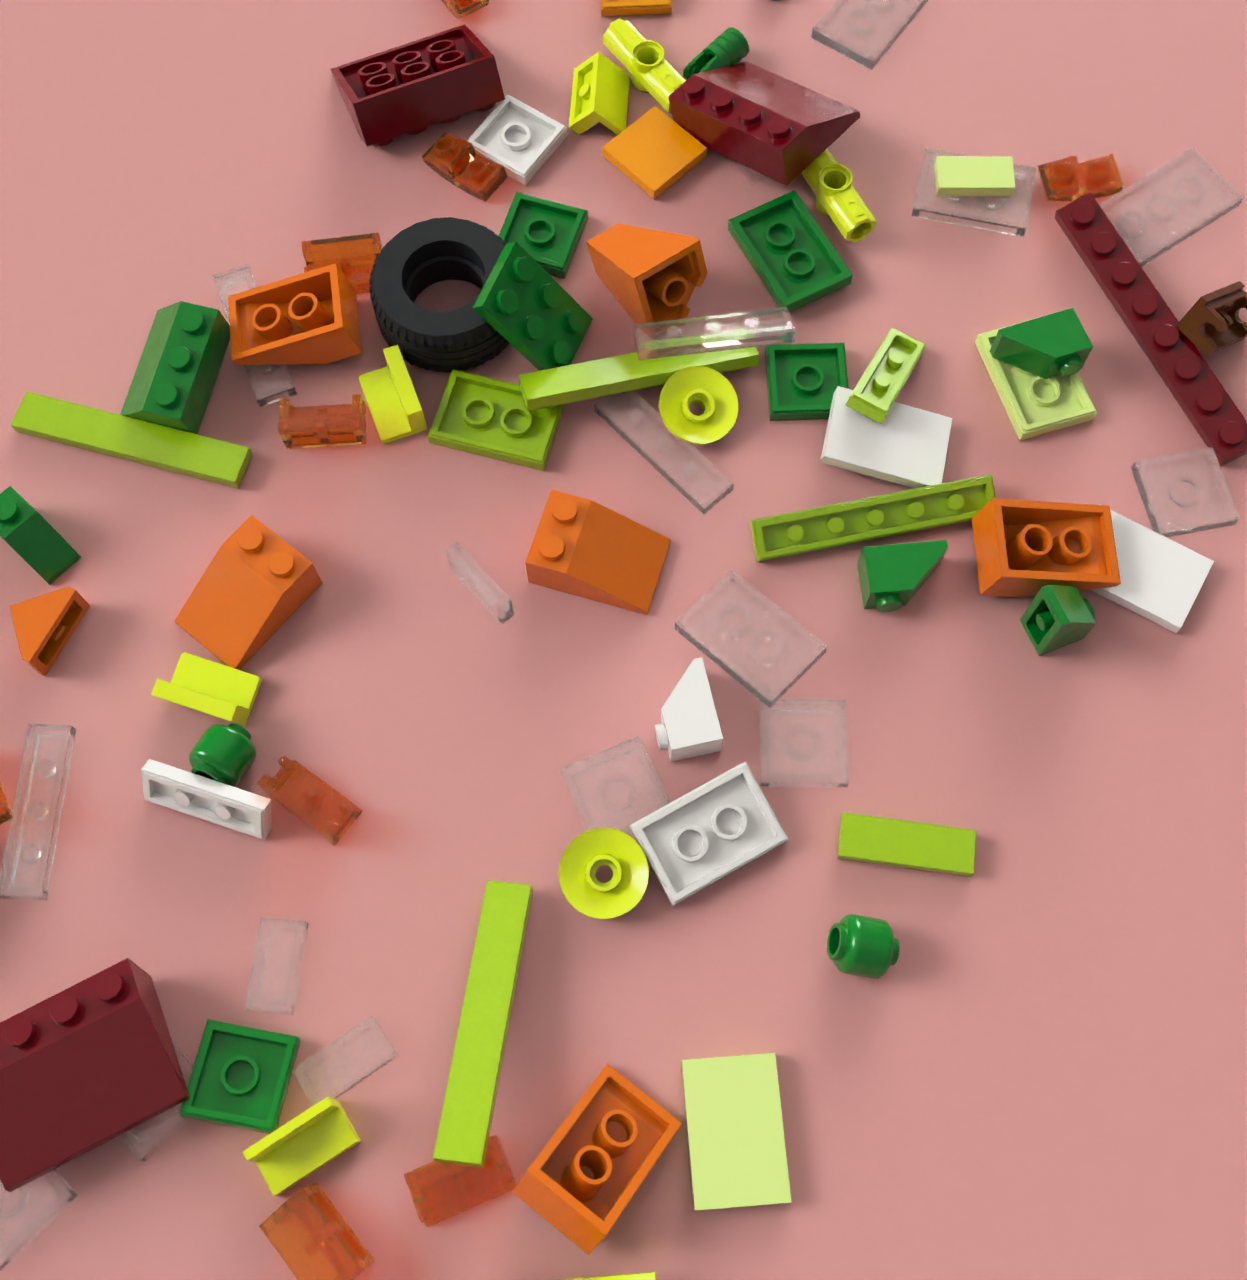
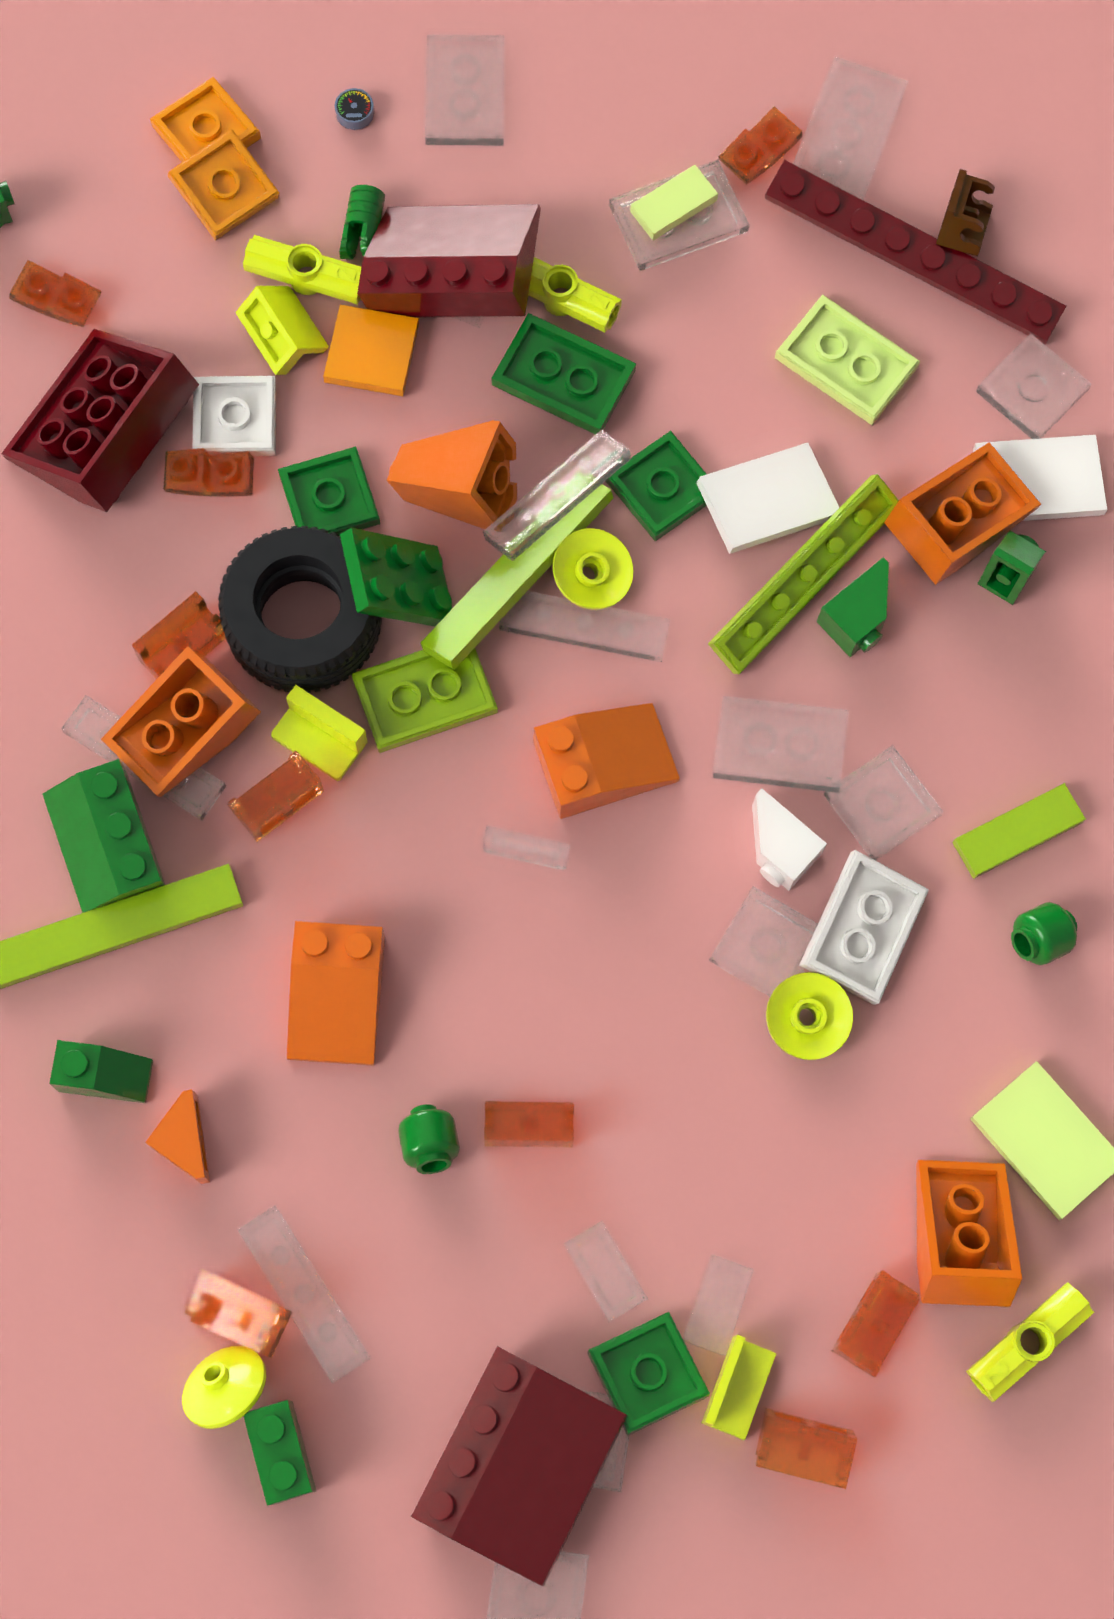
camera: 40 degrees left, 5 degrees up
(207, 799) = (444, 1183): white tile -> none
(210, 688) = (369, 1091): neon yellow panel -> none
(483, 1025) = (807, 1193): lime tile -> none
(886, 375) = (730, 440): lime tile -> none
(1044, 345) = (844, 329): green slope -> none

